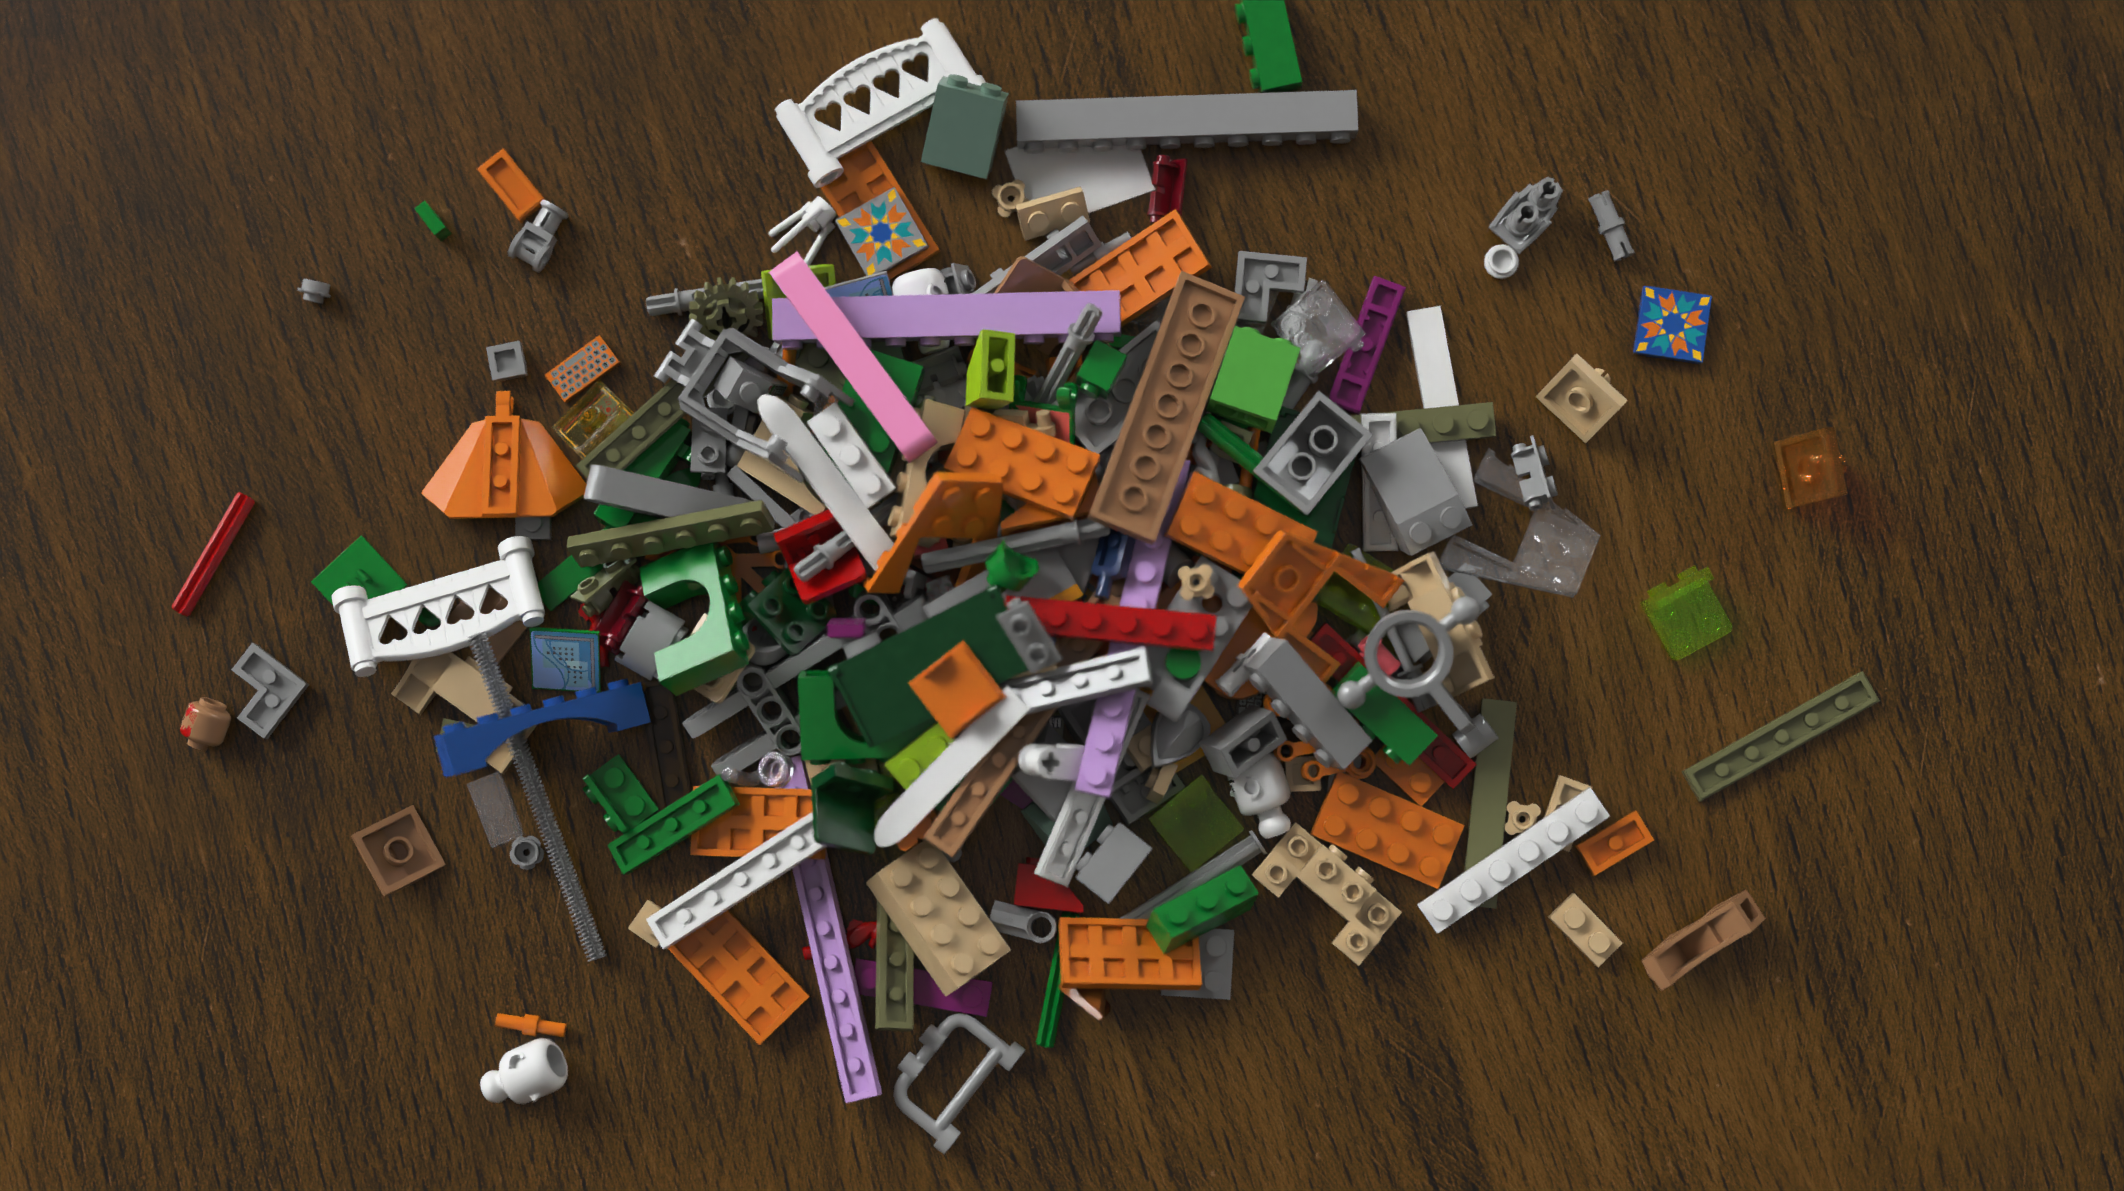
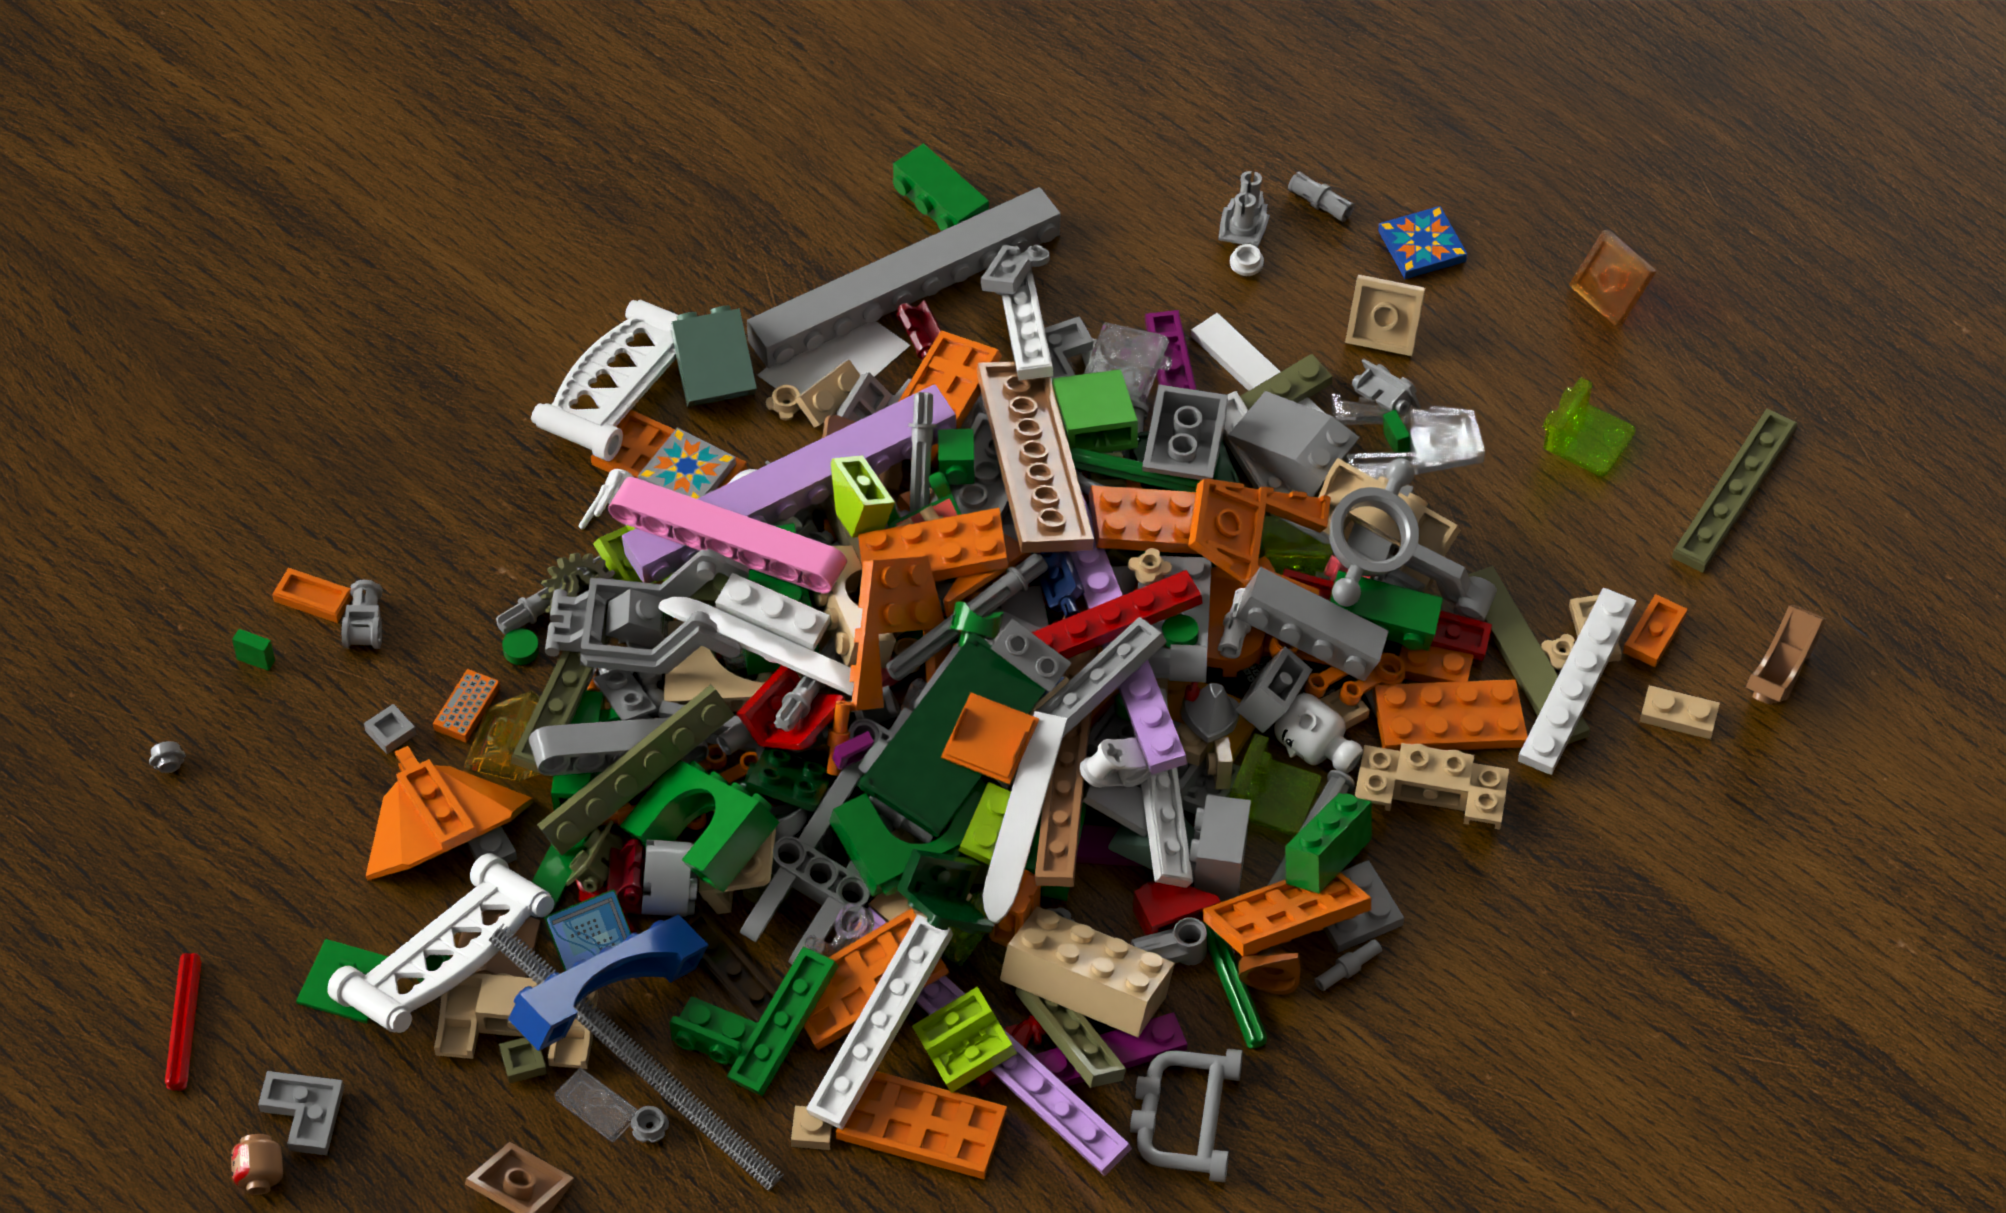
camera: 35 degrees left, 30 degrees down
(656, 333) = (520, 646): none -> green tile
(804, 925) = (964, 1039): none -> lime slope
(847, 599) = (838, 734): none -> orange bar
(1159, 1015) = (1348, 965): none -> light grey bar
(1255, 236) = (1027, 331): none -> white tile
(1279, 169) = (1011, 268): none -> light grey hinge
(1517, 524) = (1396, 432): none -> green tile

